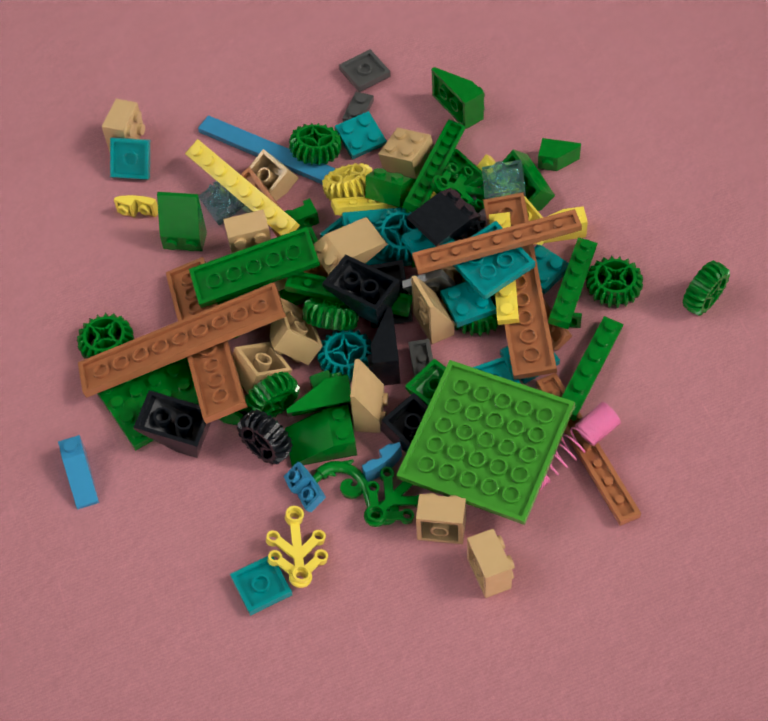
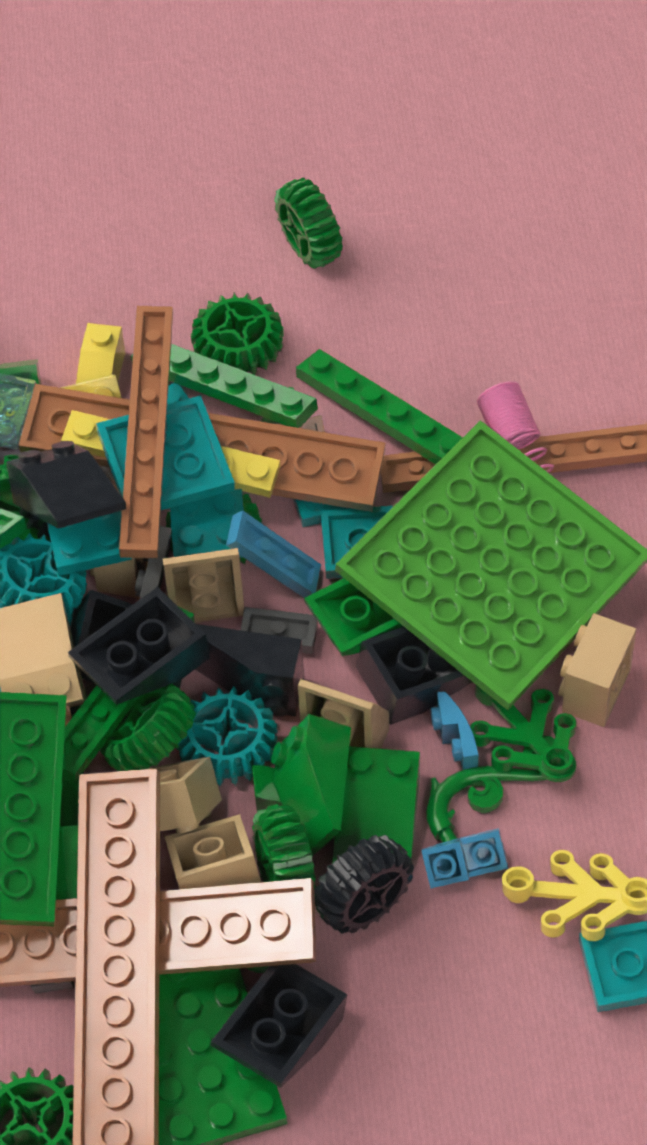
camera: 75 degrees left, 0 degrees up
(460, 334) = (273, 554): none -> dark azure plate

